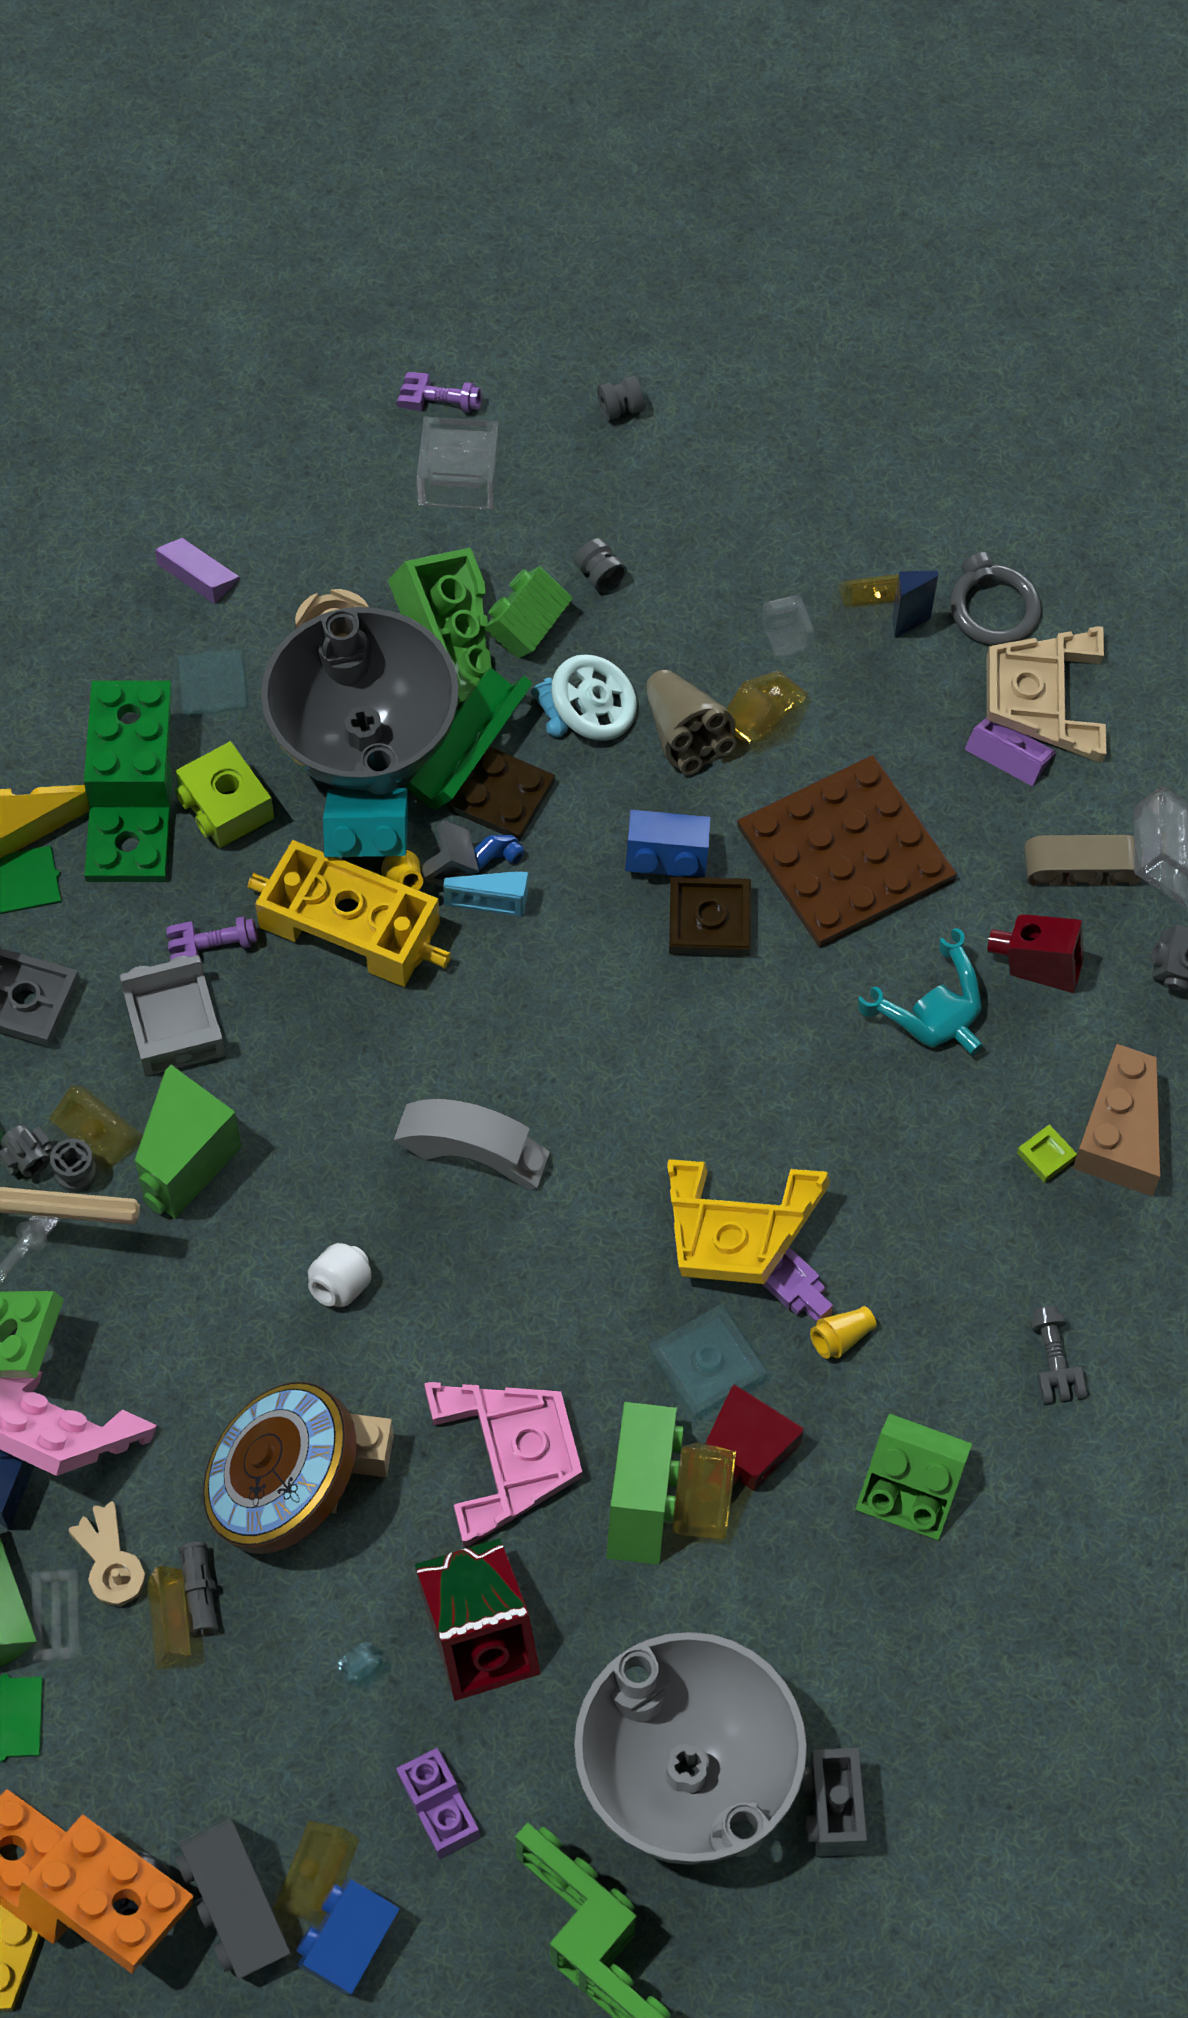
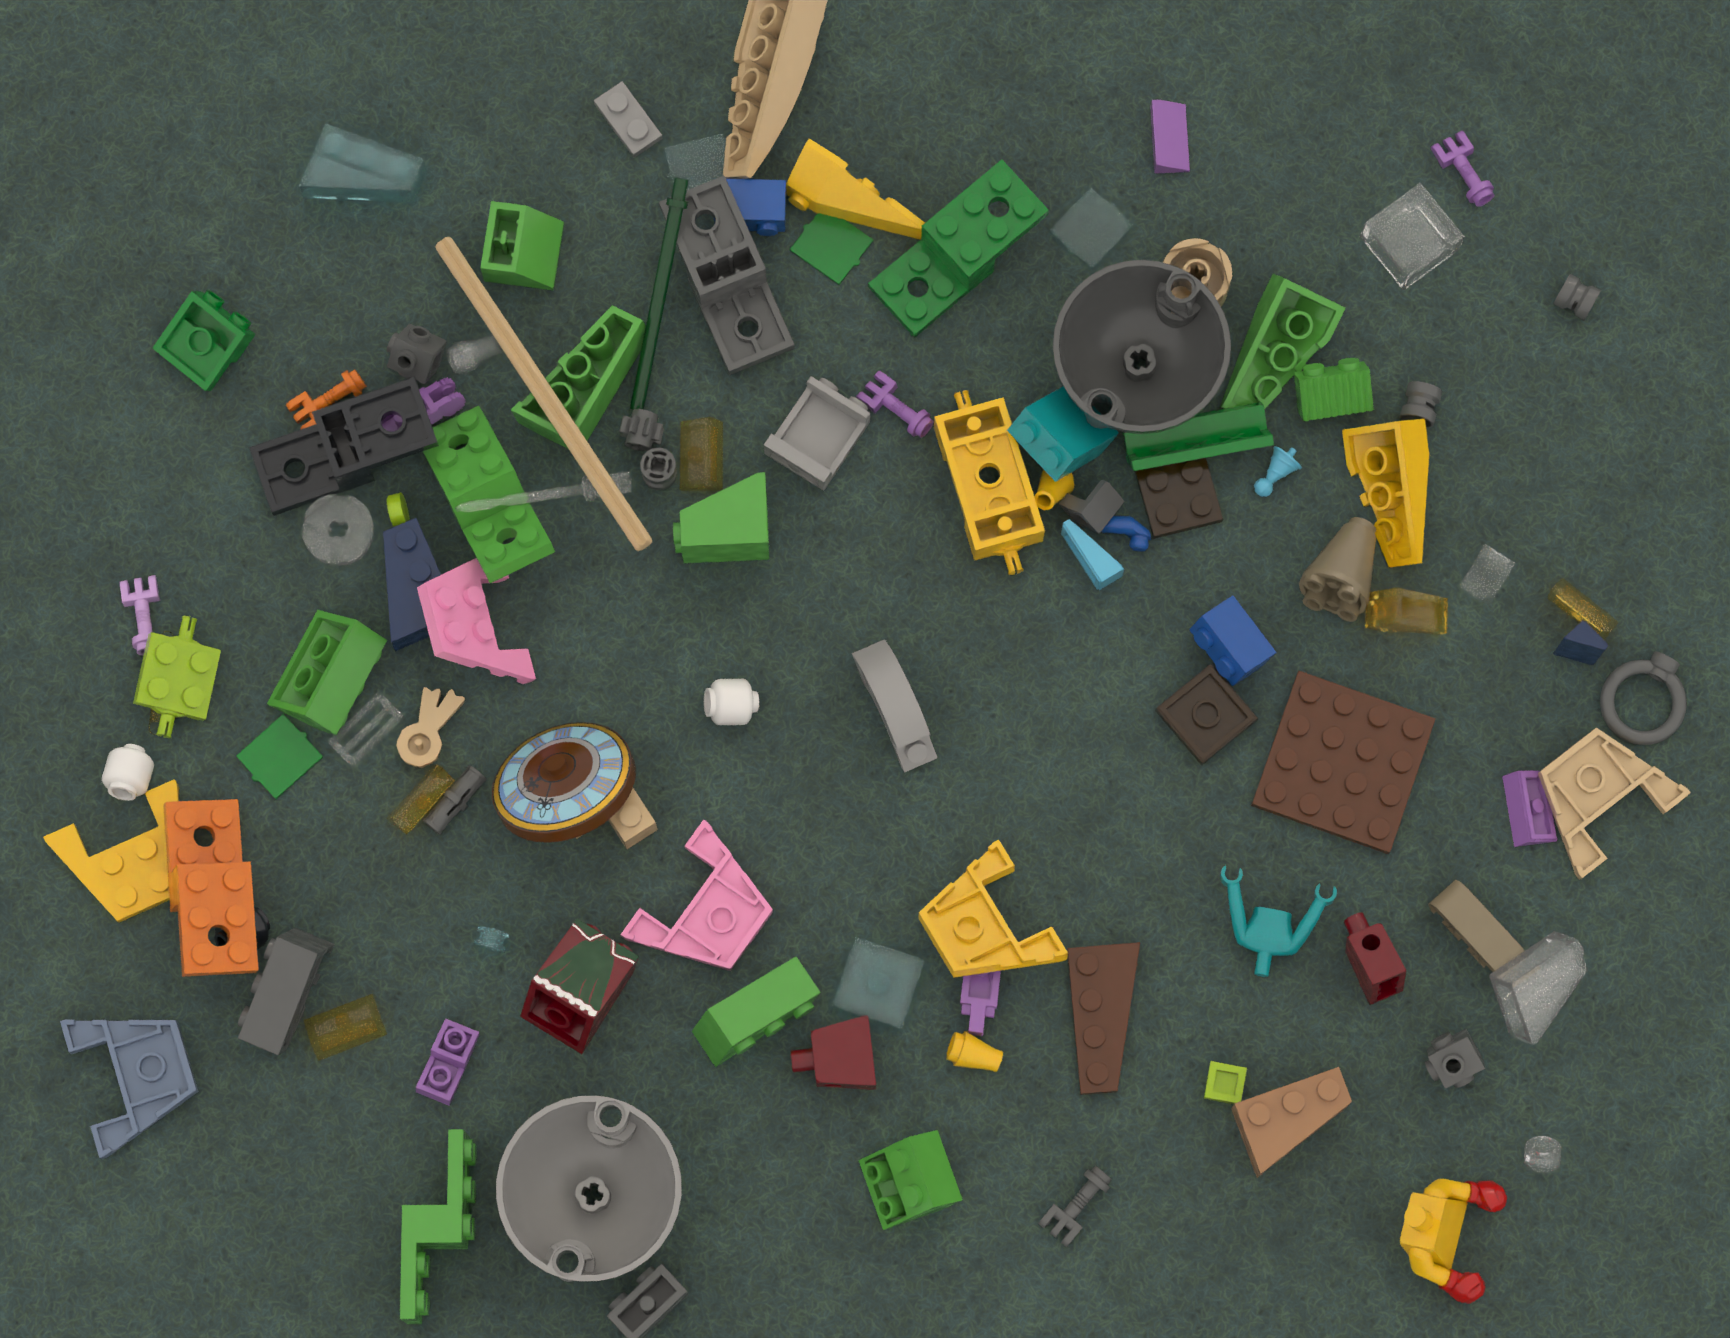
camera: 50 degrees right, 15 degrees up
(219, 814) = (997, 299): lime brick -> none
(347, 1935) = (317, 1079): blue brick -> none
(587, 703) = (1286, 472): light aqua plate -> none
(639, 627) = (1394, 473): none -> yellow wedge
(704, 1491) = (779, 1056): clear yellow slope -> none
(890, 1196) = (1101, 1004): none -> reddish brown wing

